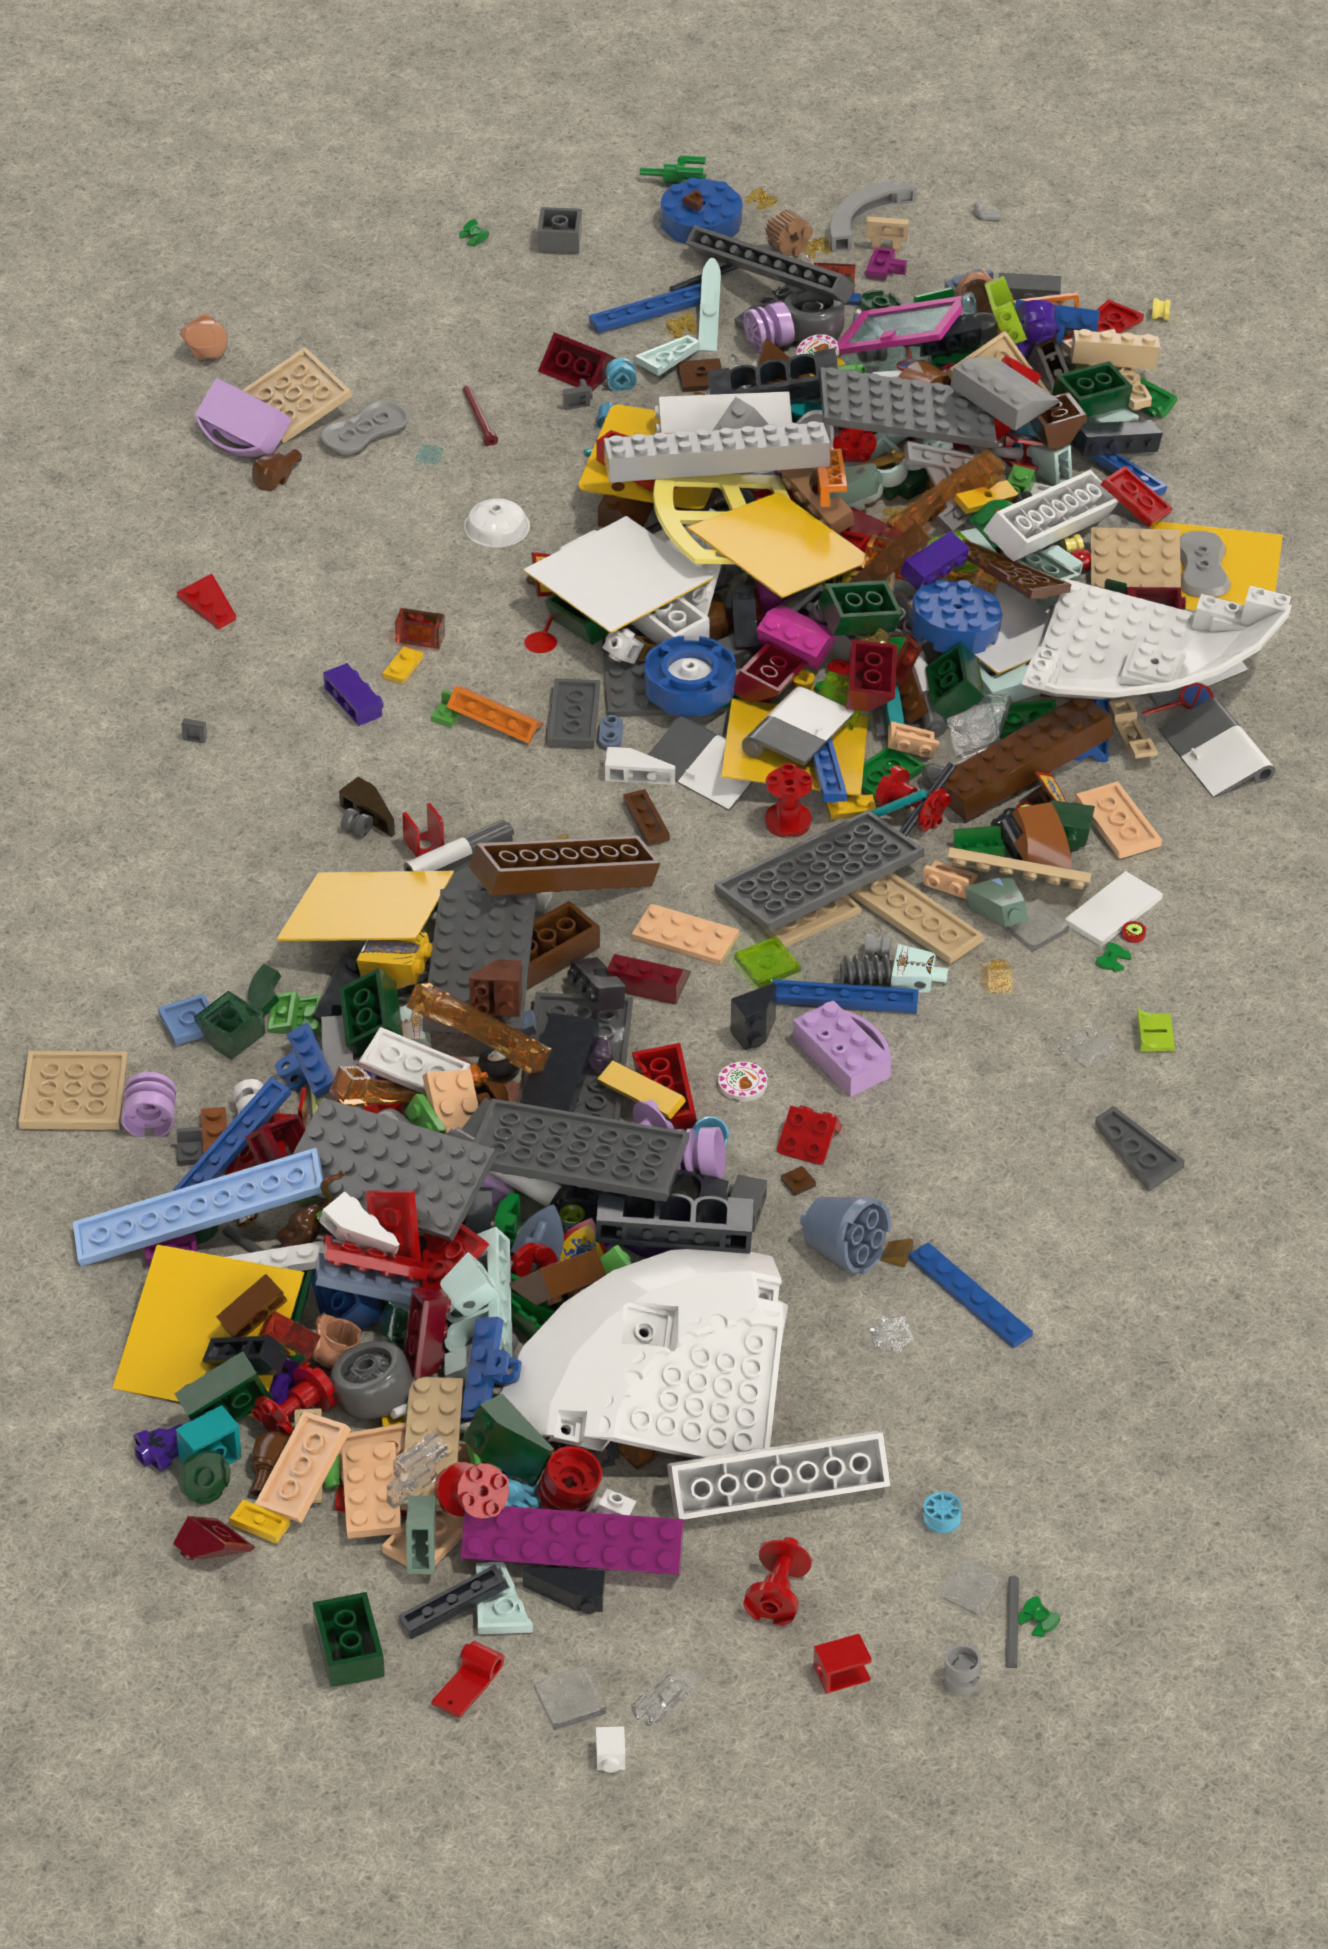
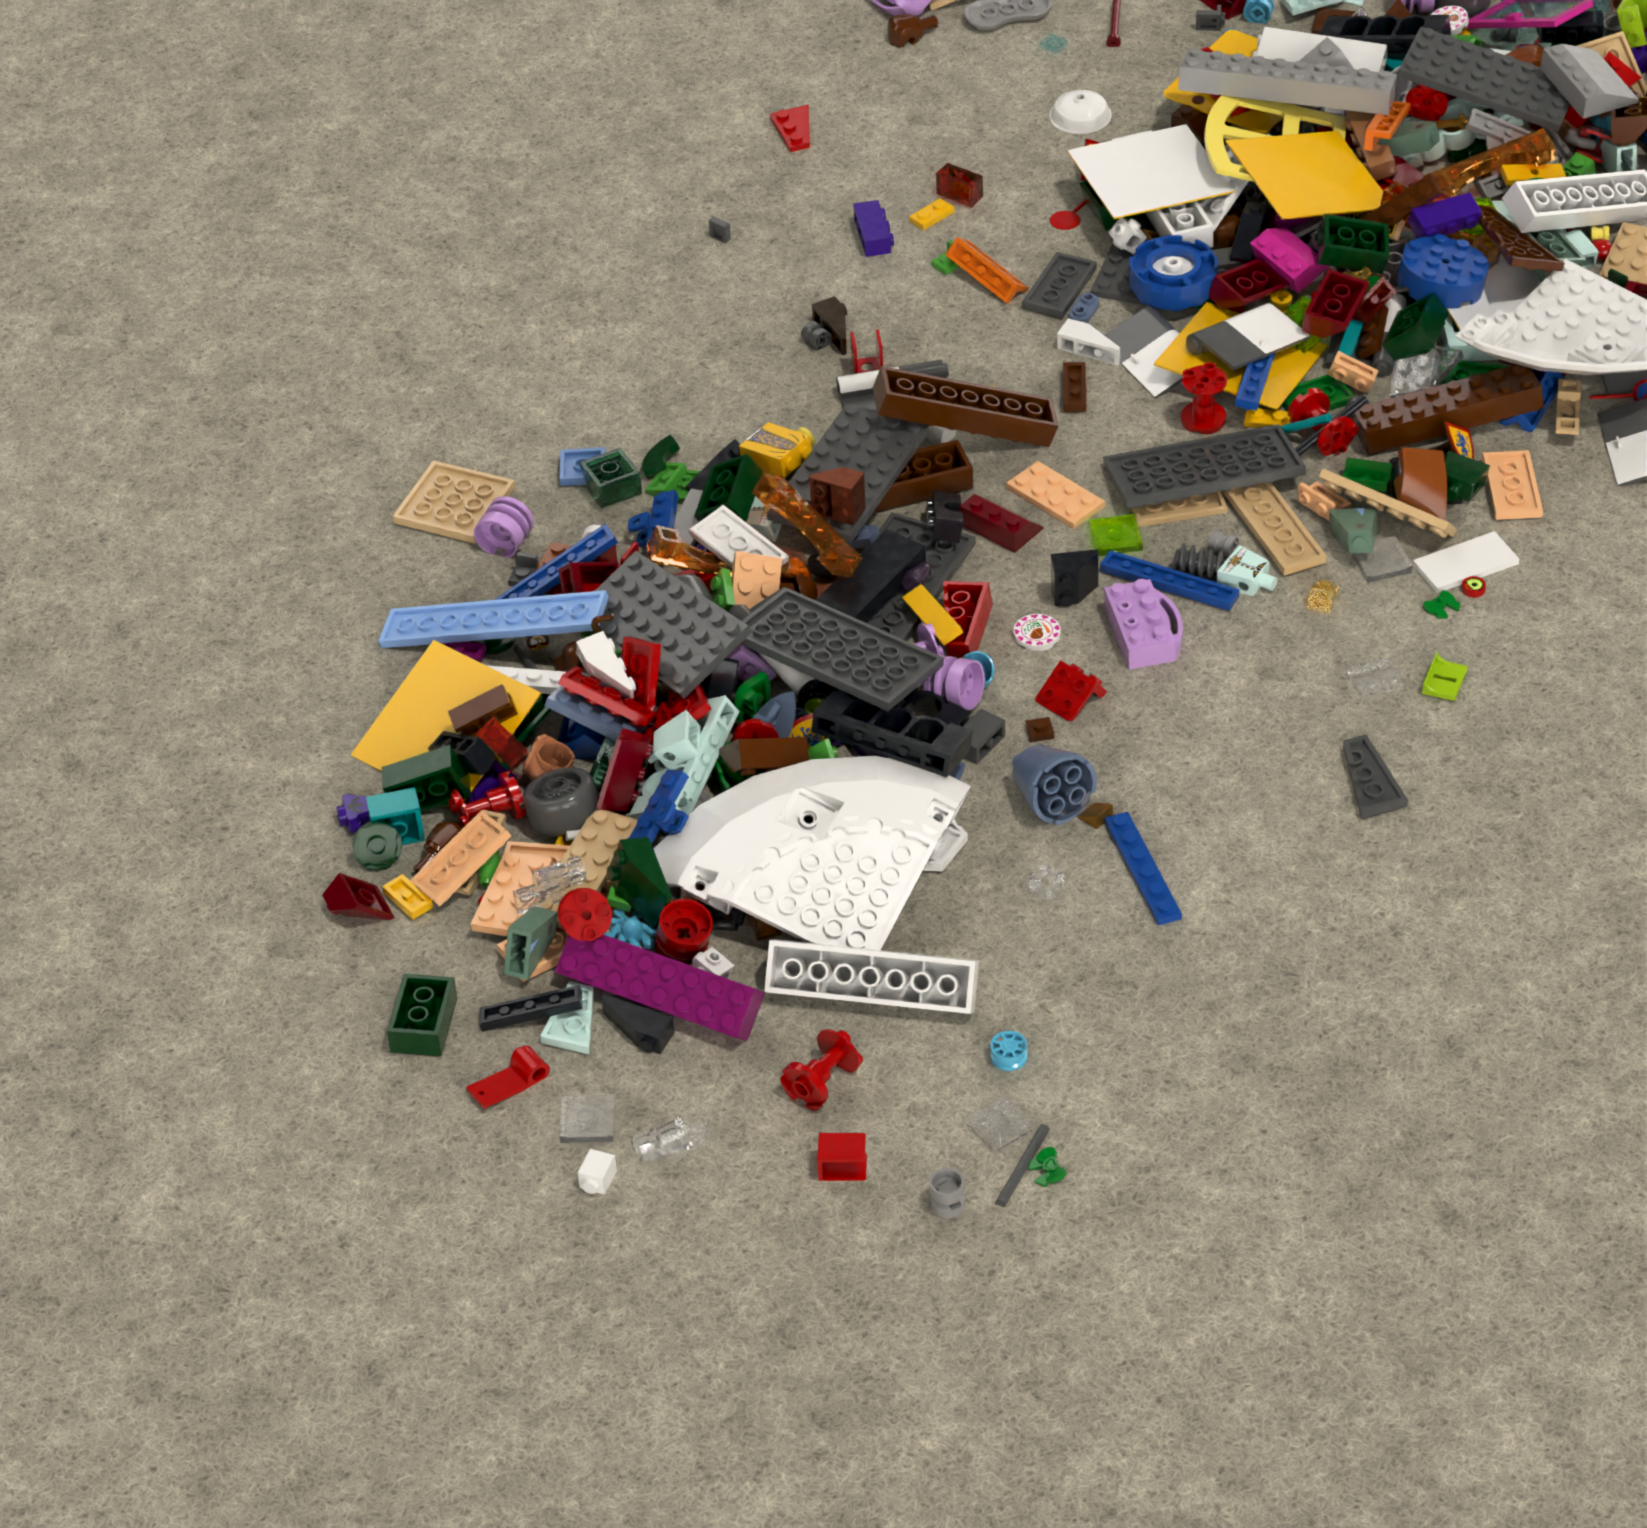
camera: 25 degrees right, 0 degrees up
(365, 906) = (777, 404): yellow piece -> none

